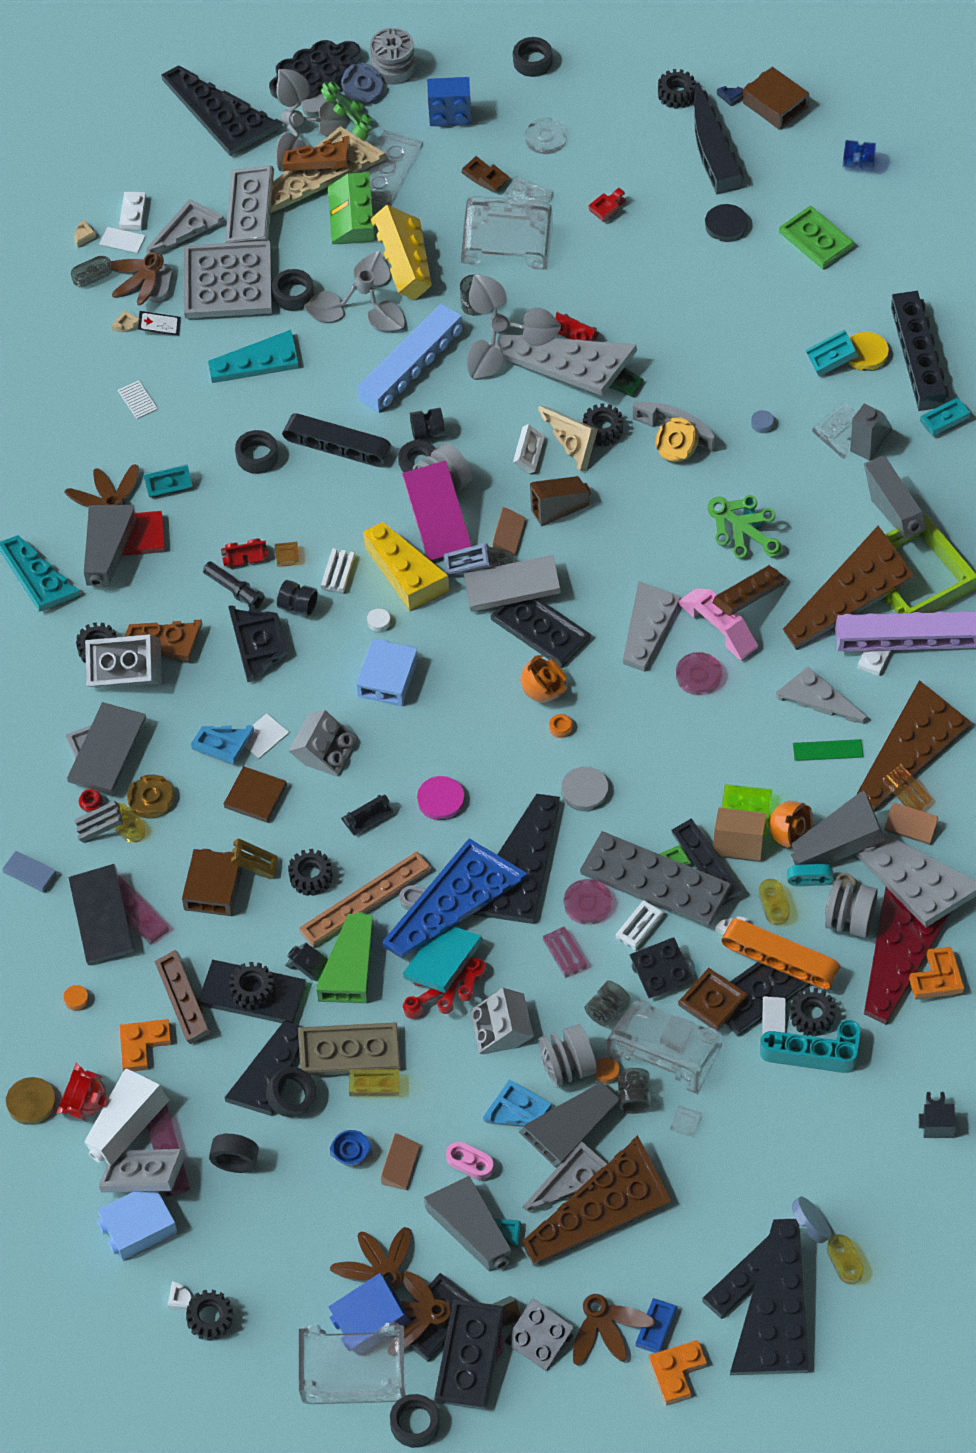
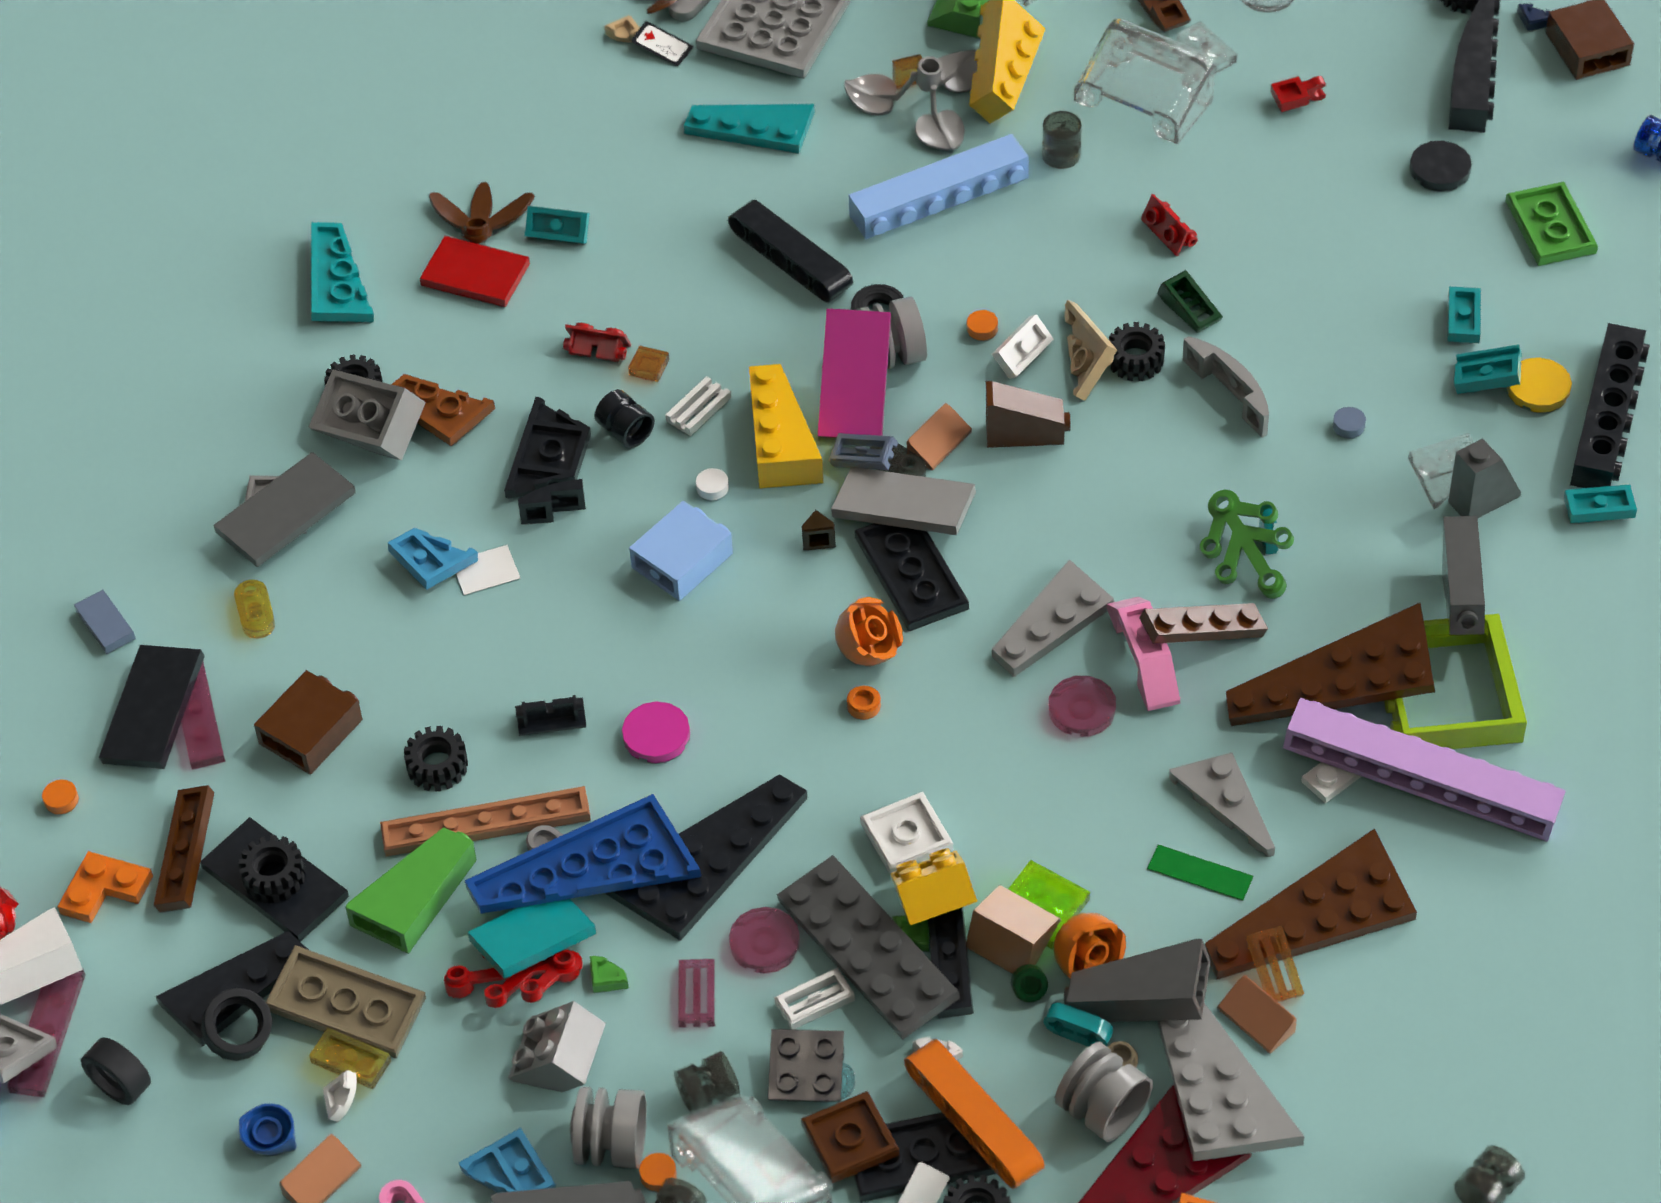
camera: 25 degrees right, 5 degrees down
(88, 795) = (228, 565): red plate -> none
(98, 818) = (220, 591): dark grey tile -> none
(106, 539) = (435, 266): dark grey slope -> none
(137, 399) = (584, 121): white sticker -> none
(150, 796) = (304, 589): pearl gold tile -> none
(240, 589) = (563, 383): black pin -> none
(251, 438) = (685, 246): black tyre -> none
(254, 862) = (373, 720): pearl gold tile -> none
(255, 794) = (430, 636): reddish brown tile -> none
(278, 675) = (541, 503): none -> black slope
(292, 276) = (843, 44): black tyre -> none
(306, 960) = (361, 865): black bracket -> none
(323, 743) = (549, 606): light grey slope -> none
(342, 282) = (903, 67): none -> clear orange tile
(382, 1108) = (340, 1095): none -> white tile
(427, 424) = (912, 271): black wheel -> none
(470, 625) = (818, 532): none -> dark brown slope
(485, 296) = (1065, 137): light grey plant -> none
(492, 444) = (982, 325): none -> orange tile
(502, 964) = (606, 975): none -> bright green tile
(576, 362) = (1142, 263): light grey wing -> none
(584, 788) = (846, 793): light grey tile -> none
(637, 798) = (905, 831): none -> white plate
(677, 440) = (1219, 403): tile -> none
(678, 824) = (933, 886): none -> yellow slope
(766, 861) = (1029, 983): none -> dark green tile
(774, 904) = (1009, 1044): clear yellow plate -> none
(796, 321) = (1464, 314): none -> teal plate

